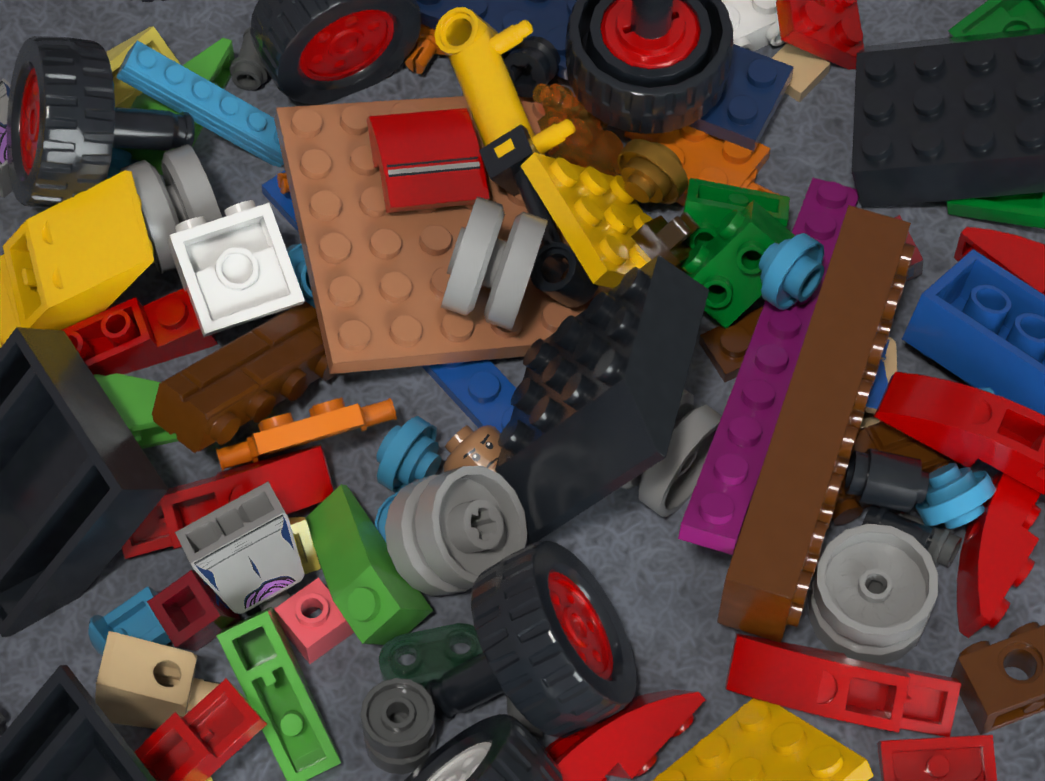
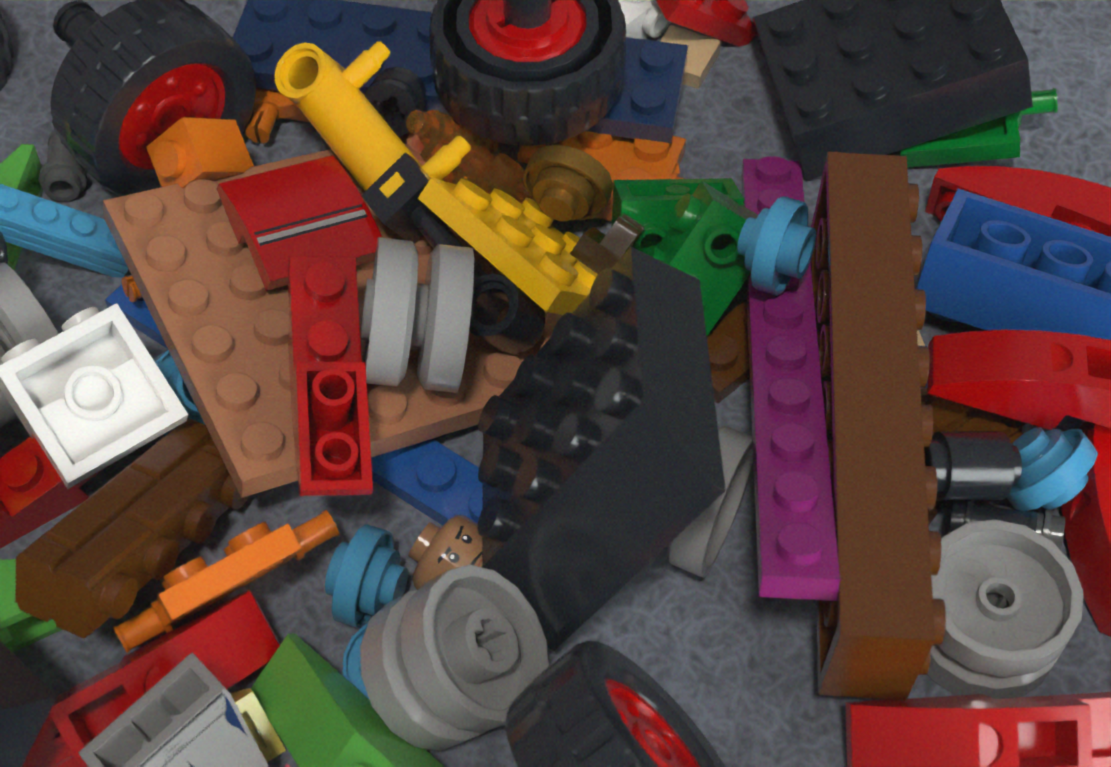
camera: 15 degrees left, 5 degrees down
(362, 80) = (199, 150): none -> orange brick
(414, 295) = (328, 378): none -> red slope

